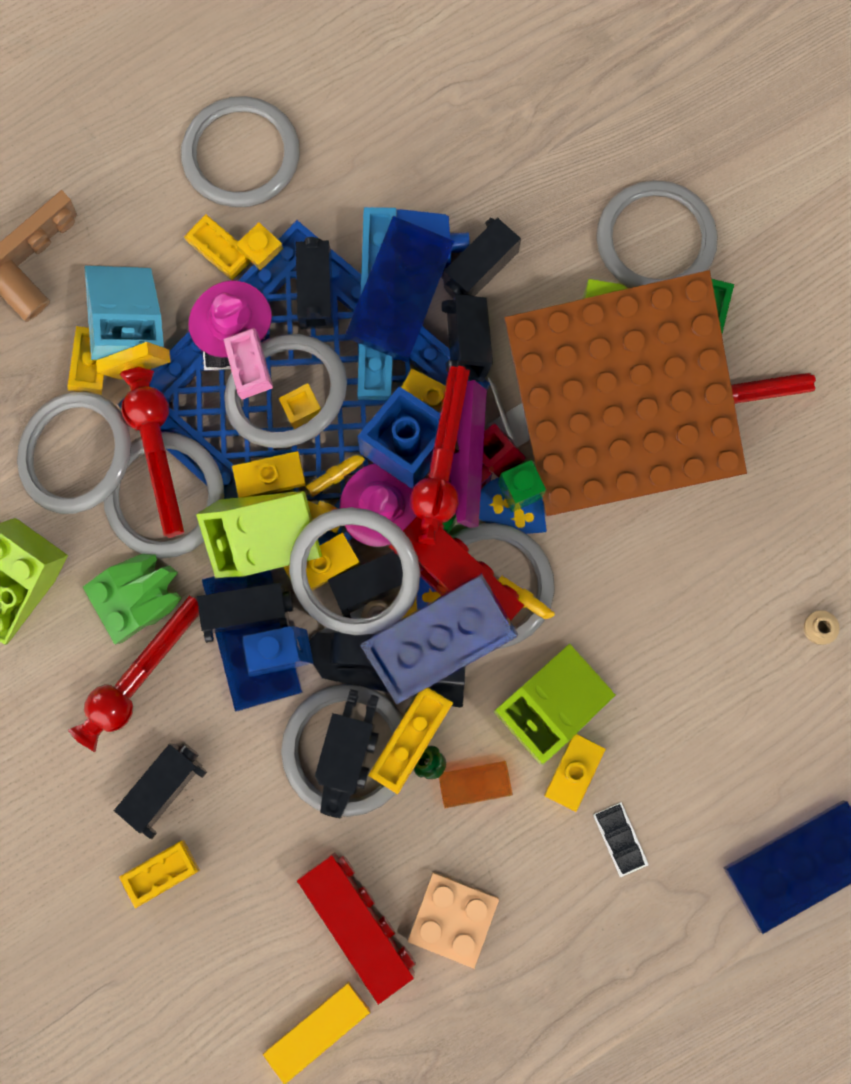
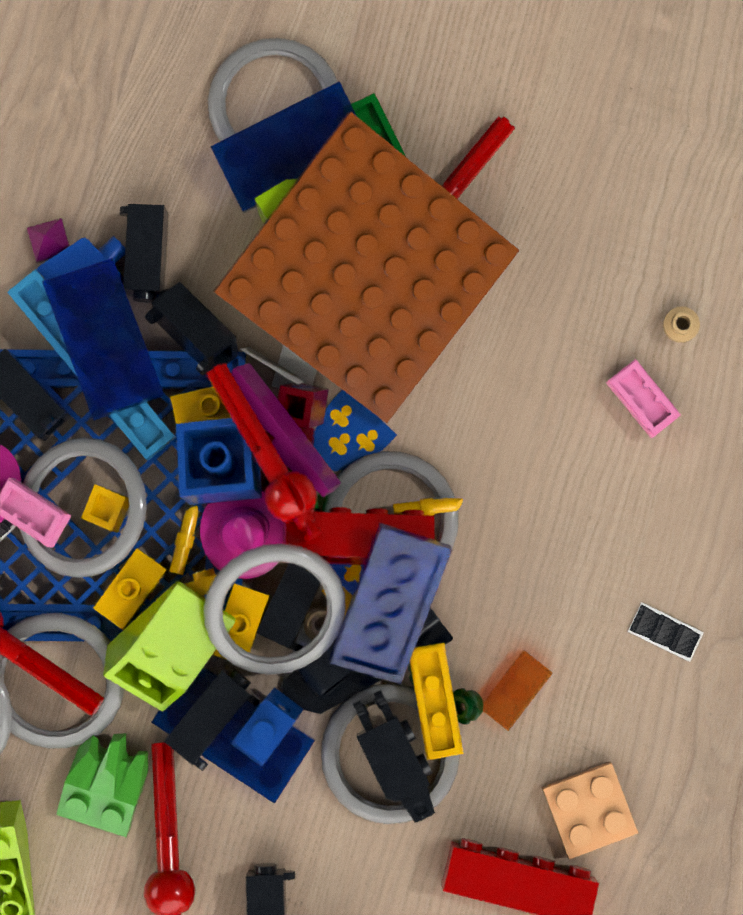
camera: 45 degrees left, 5 degrees up
(423, 199) = (48, 239): none -> magenta slope
(521, 486) = (345, 416): green brick -> none
(554, 704) = (524, 571): lime slope -> none
(574, 772) = (585, 611): yellow plate -> none
(635, 259) = (280, 144): none -> clear blue plate
(748, 656) = (643, 398): none -> bright pink plate

